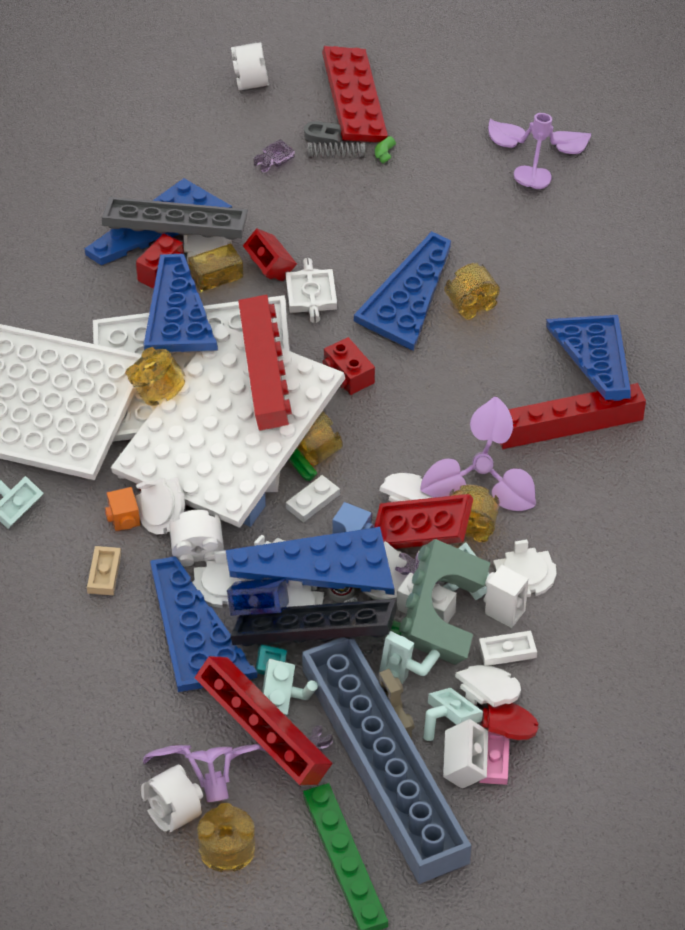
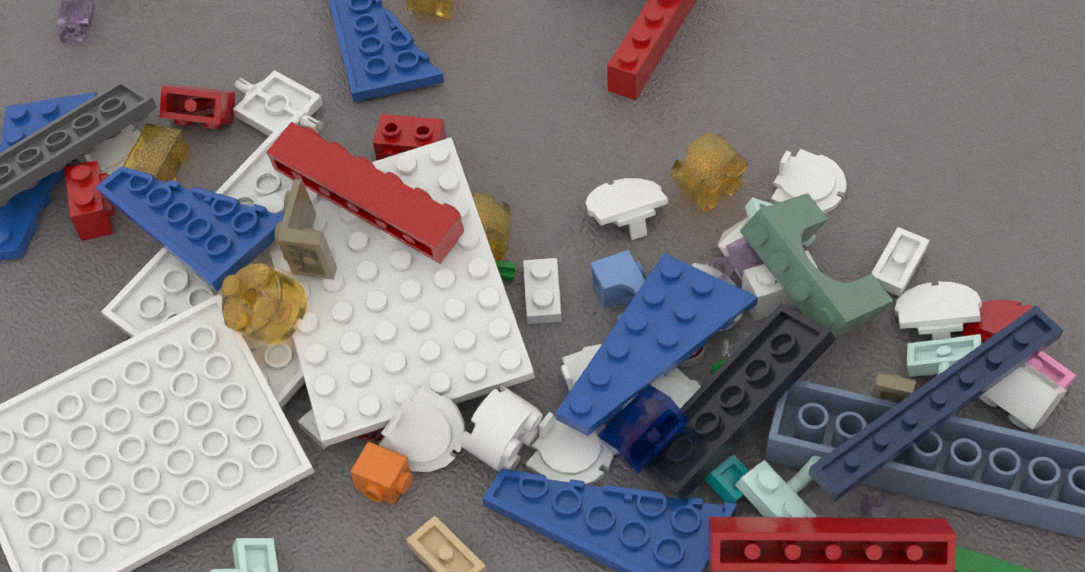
camera: 45 degrees left, 5 degrees up
(206, 352) = (300, 243): none -> dark tan bracket
(398, 655) = (848, 352): light aqua plate -> none
(400, 708) = (934, 403): none -> dark blue plate
(423, 520) = (689, 212): red tile -> none
(487, 423) = (651, 67): lavender plant -> none
(506, 595) = (850, 213): white brick -> none

